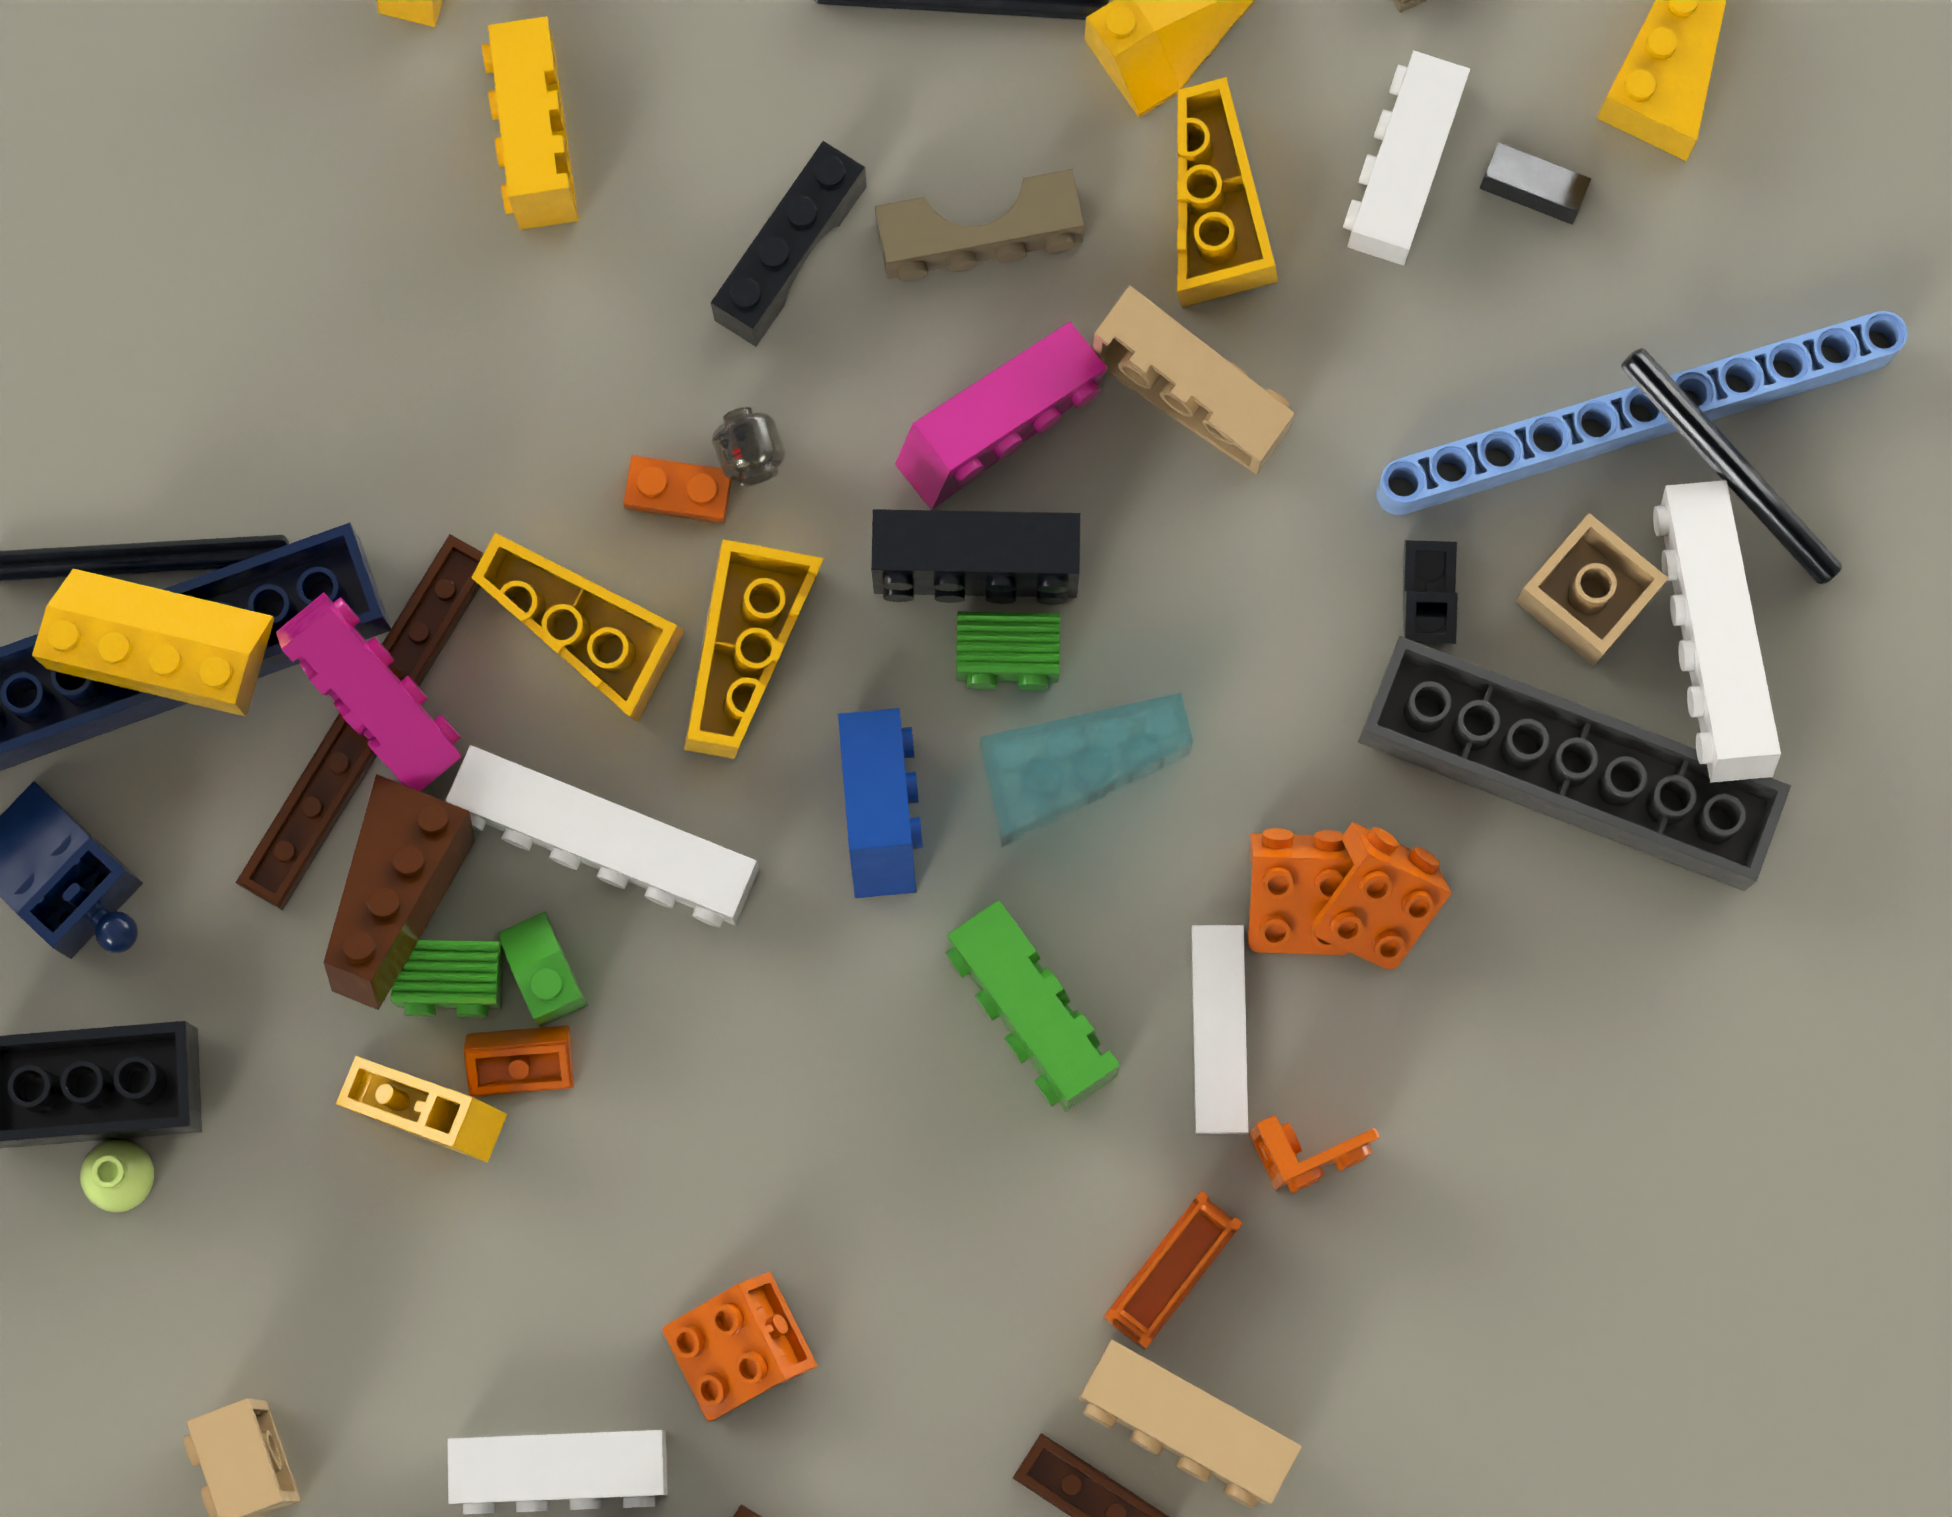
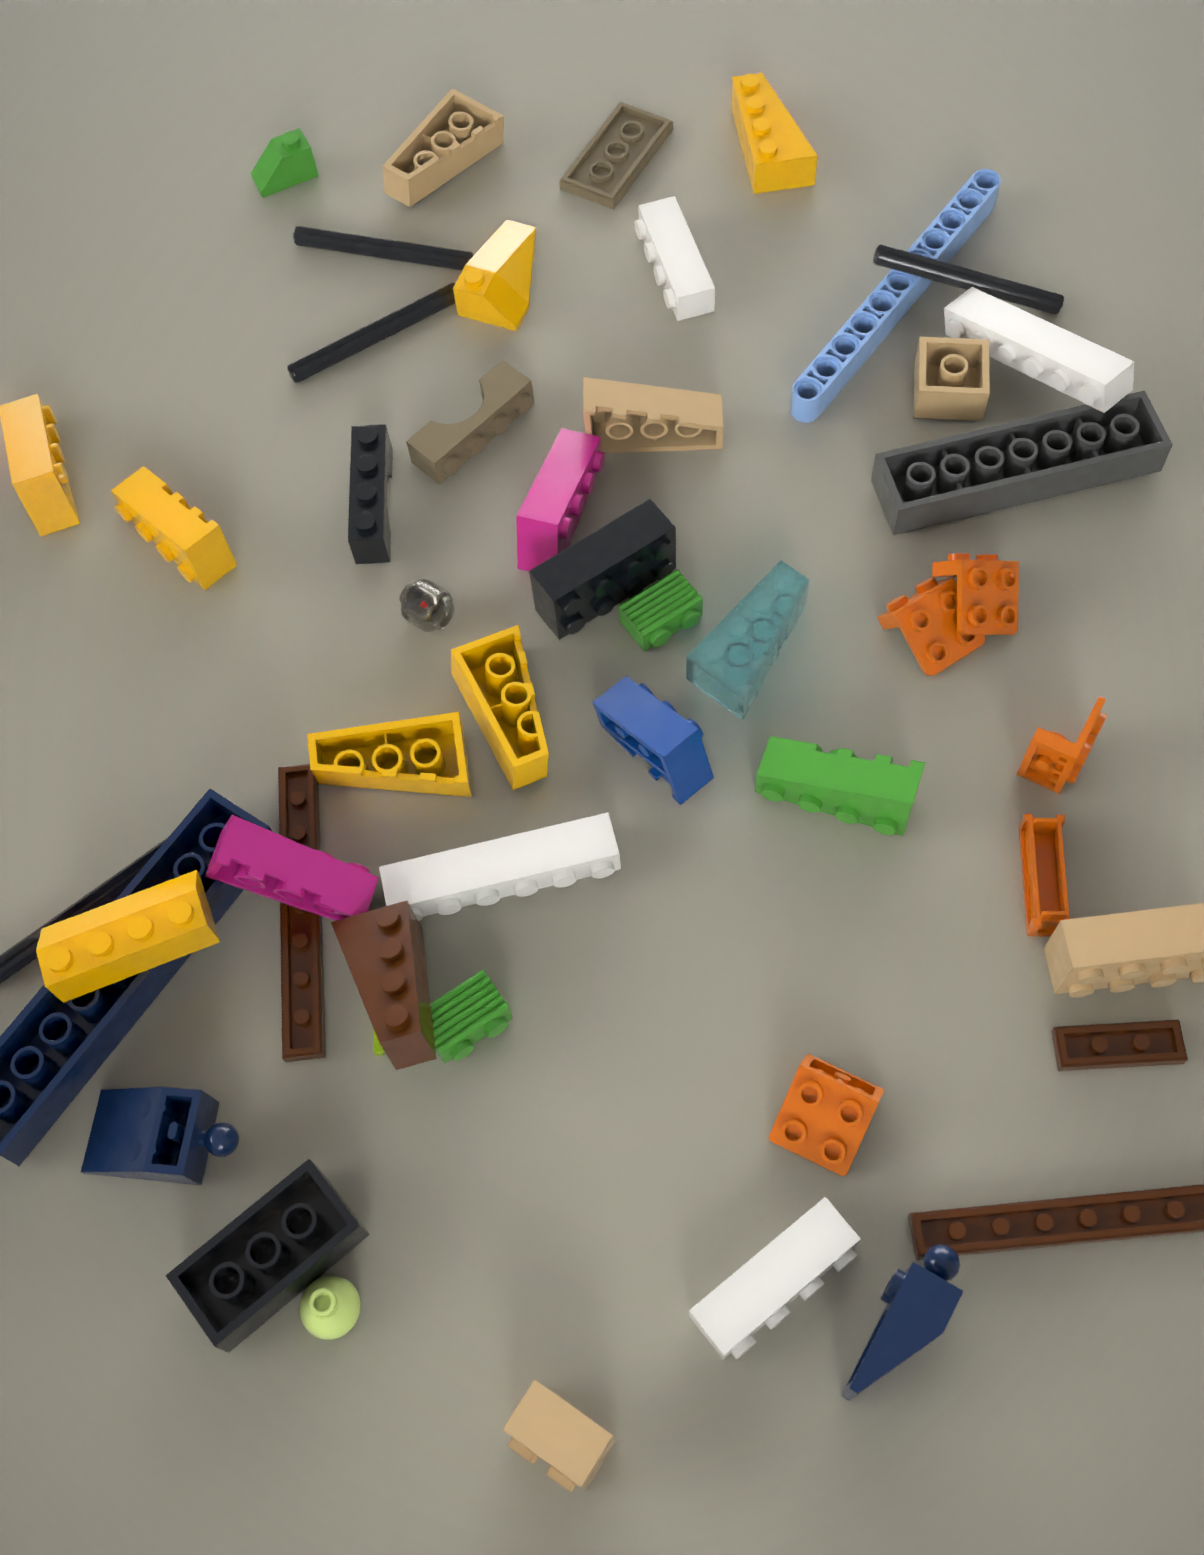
camera: 30 degrees left, 15 degrees down
(422, 1108) = (509, 1109): yellow slope -> none
(519, 1060) = (548, 1040): orange slope -> none
(541, 970) = (524, 972): bright green slope -> none
(677, 489) = (400, 658): orange plate -> none
(1219, 215) = (594, 329): yellow wedge -> none
(1219, 1029) = (952, 729): white tile -> none
(1430, 591) = (861, 437): black slope -> none
(1535, 183) = (750, 235): slope -> none

